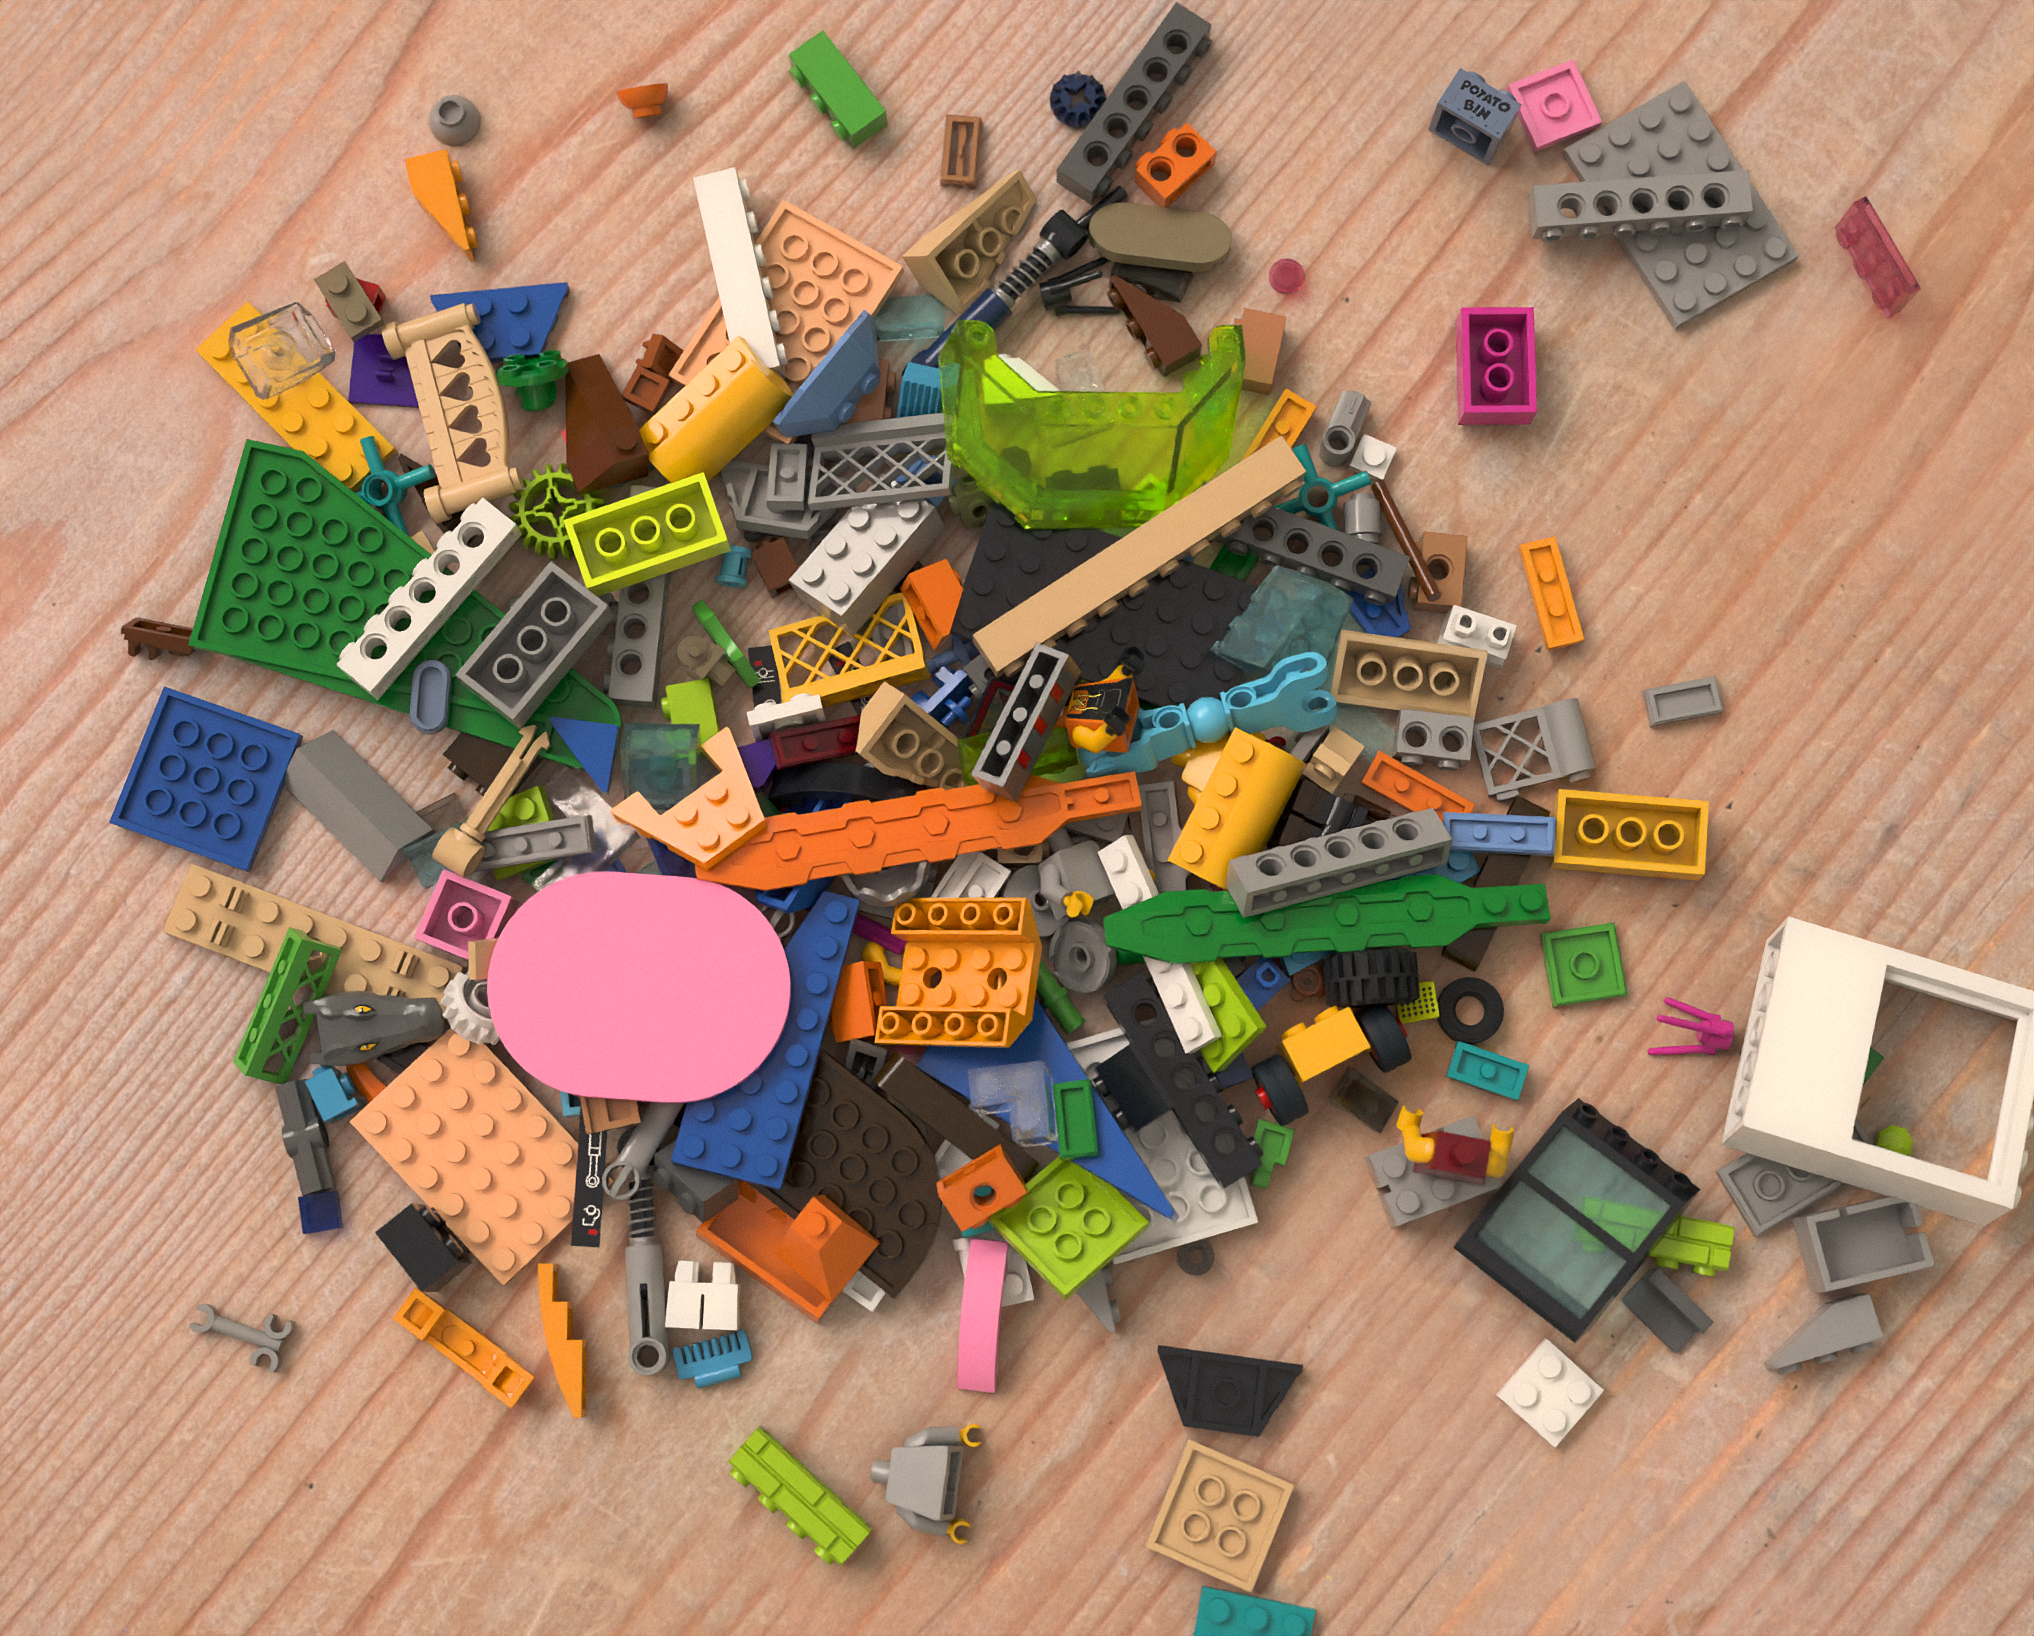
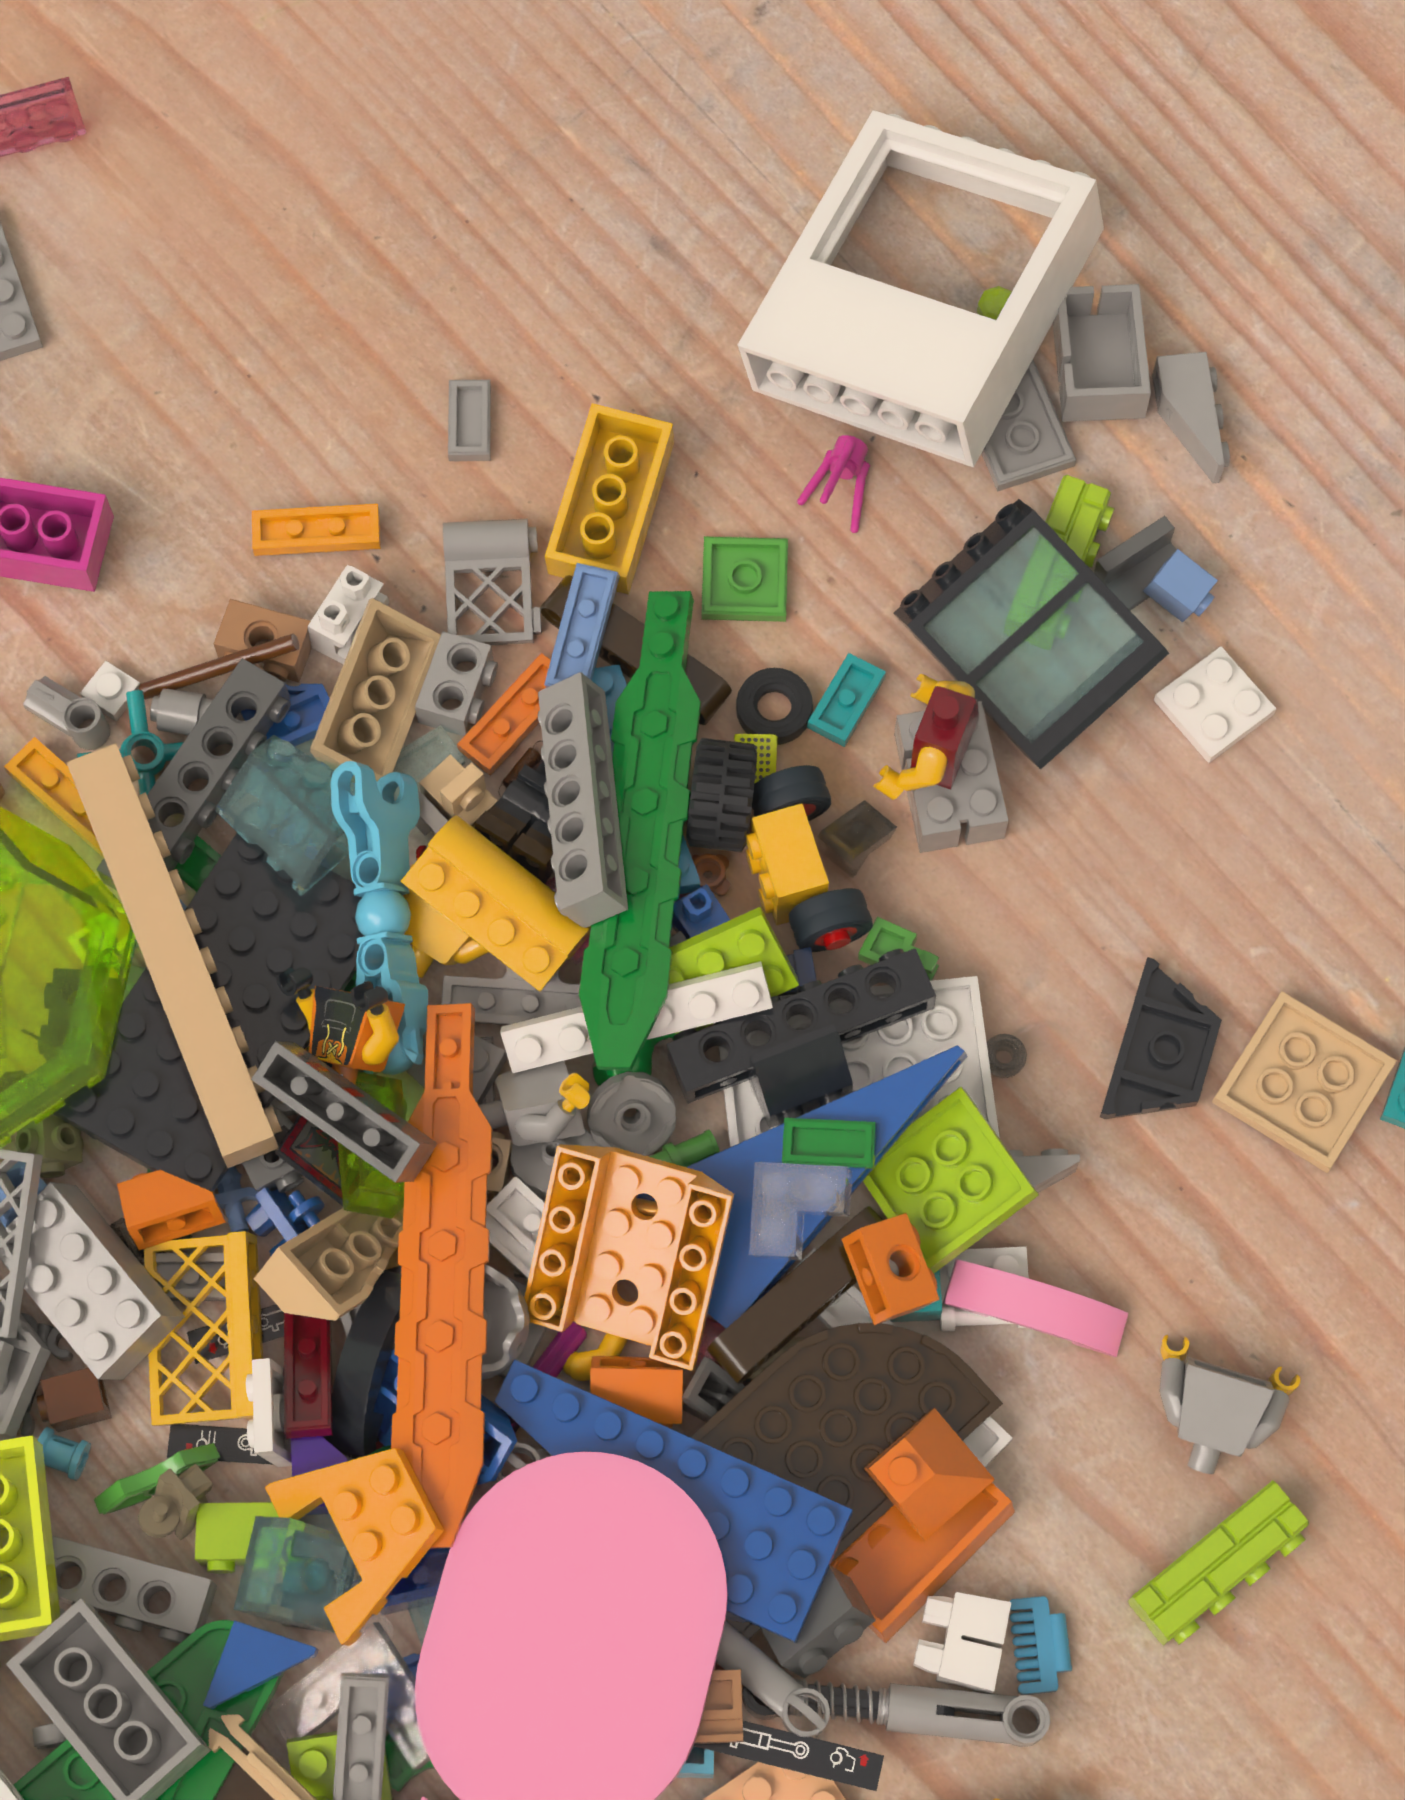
camera: 80 degrees left, 10 degrees down
(1651, 1347) = (1181, 586): none -> medium blue brick

